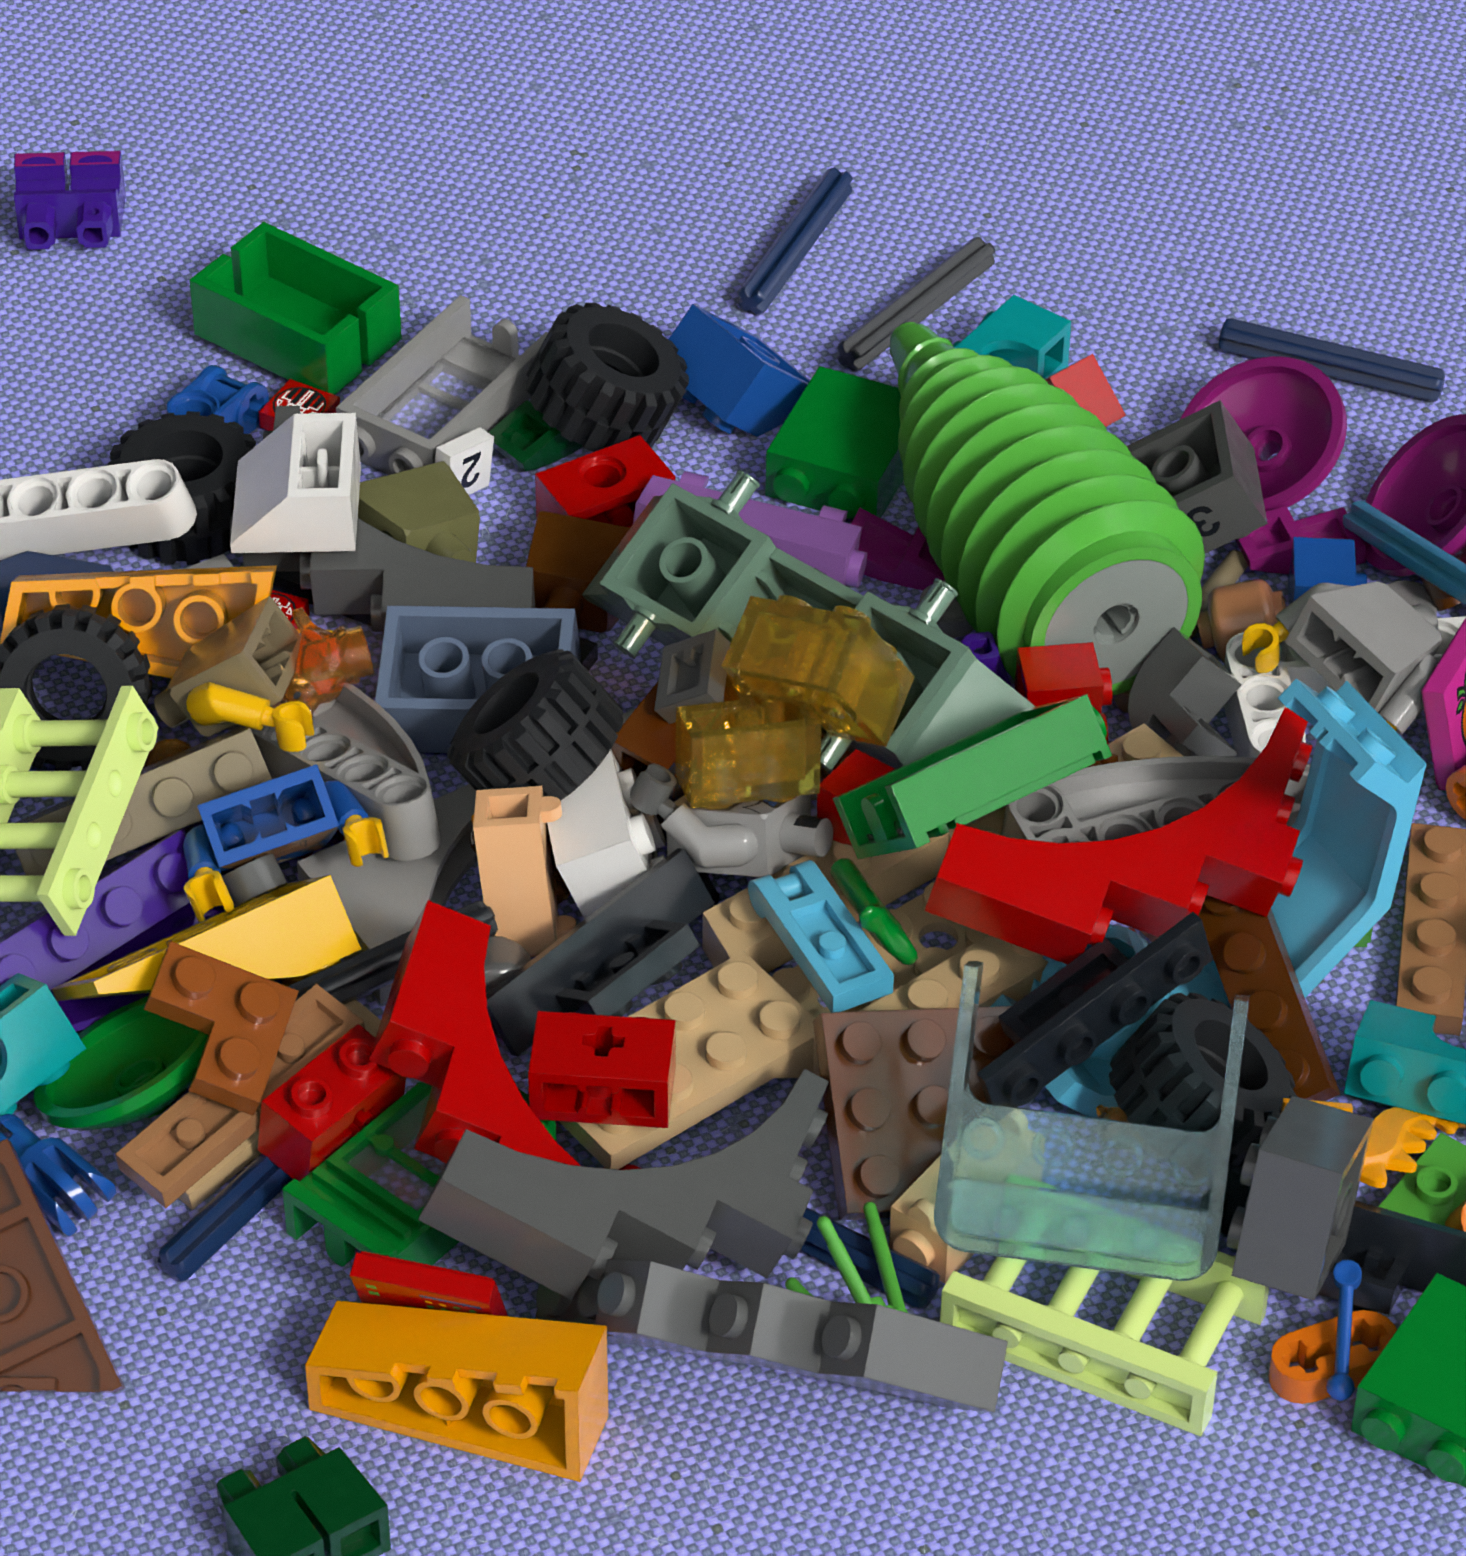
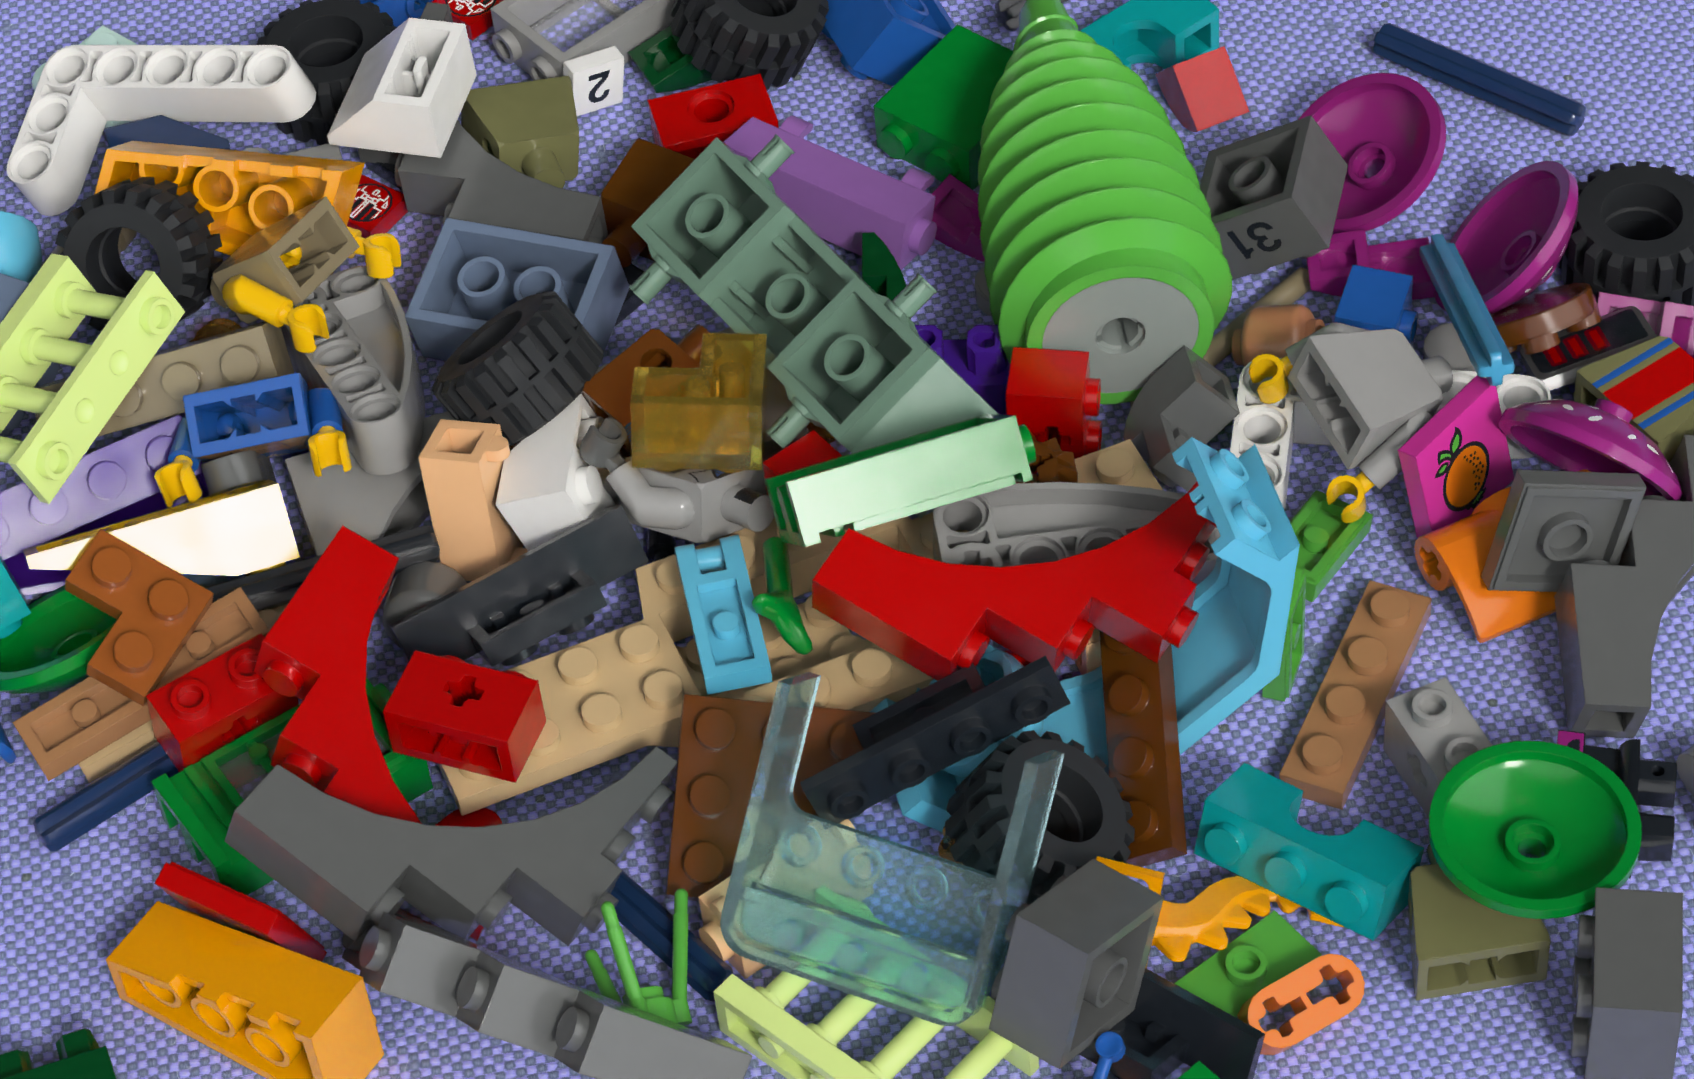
camera: 20 degrees right, 5 degrees up
(326, 662) = (364, 270): clear orange animal -> none
(691, 673) = (674, 332): dark grey bracket -> none
(820, 662) = (774, 348): clear yellow brick -> none

